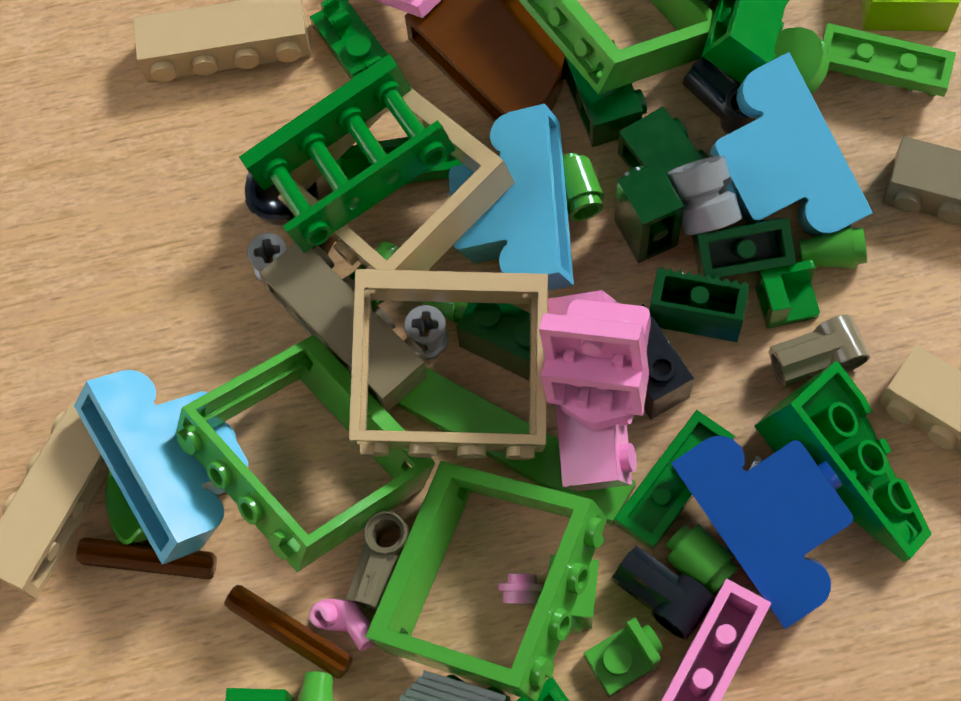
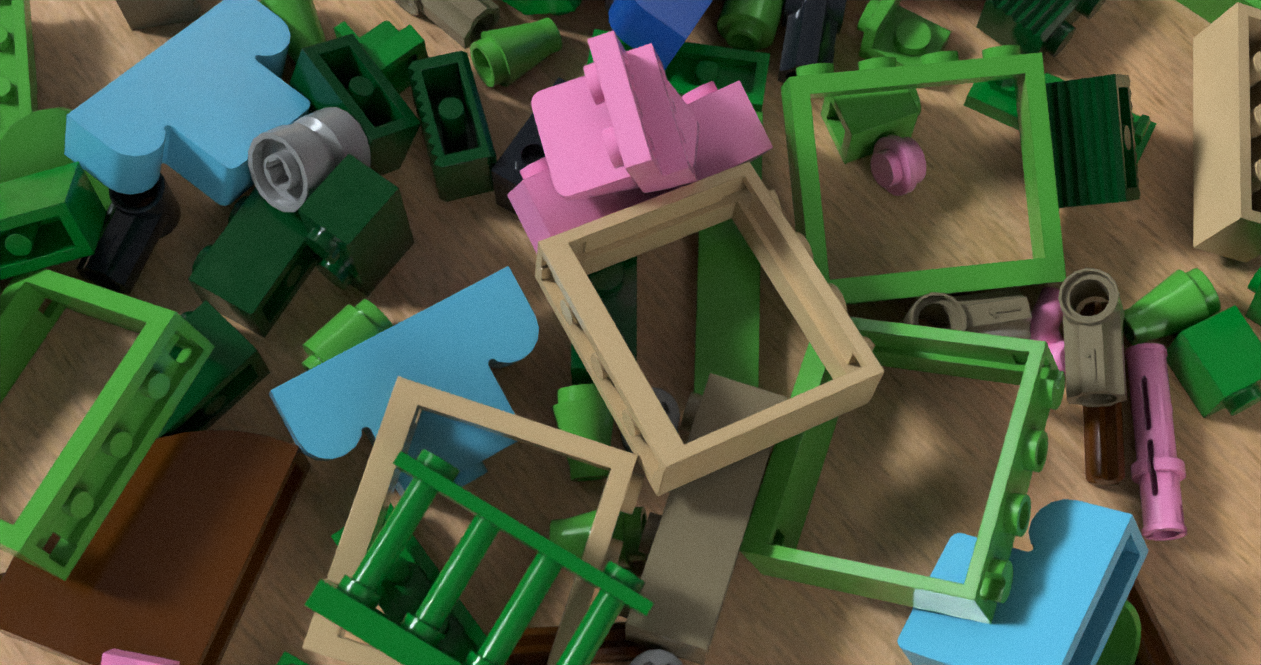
camera: 125 degrees left, 0 degrees up
(220, 632) = (1157, 464): none -> bright pink pin
(312, 625) = (1093, 342): none -> dark tan piece
(747, 377) = (512, 51): none -> bright green cone

